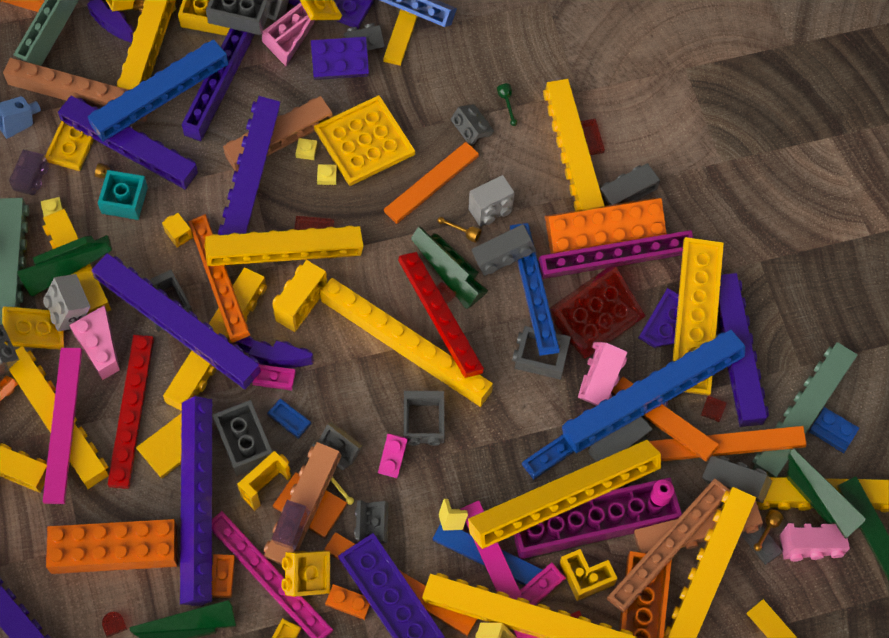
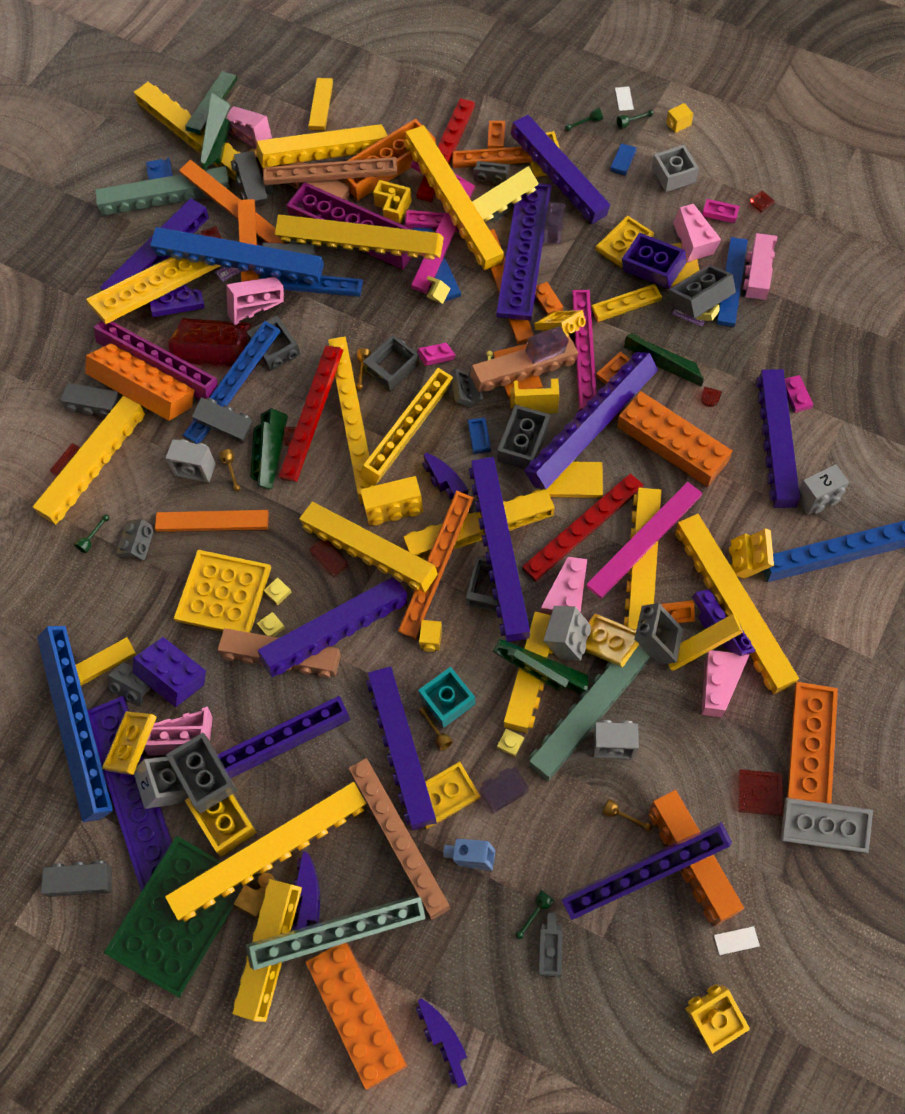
camera: 130 degrees left, 0 degrees up
(158, 90) = (338, 754): blue brick -> none
(275, 377) = (460, 463): dark pink plate -> none
(345, 359) = (405, 427): none -> yellow brick
(371, 519) = (486, 328): dark grey bracket -> none
(455, 405) = (362, 354): none -> pearl gold hinge
(662, 492) = (303, 192): dark pink brick -> none

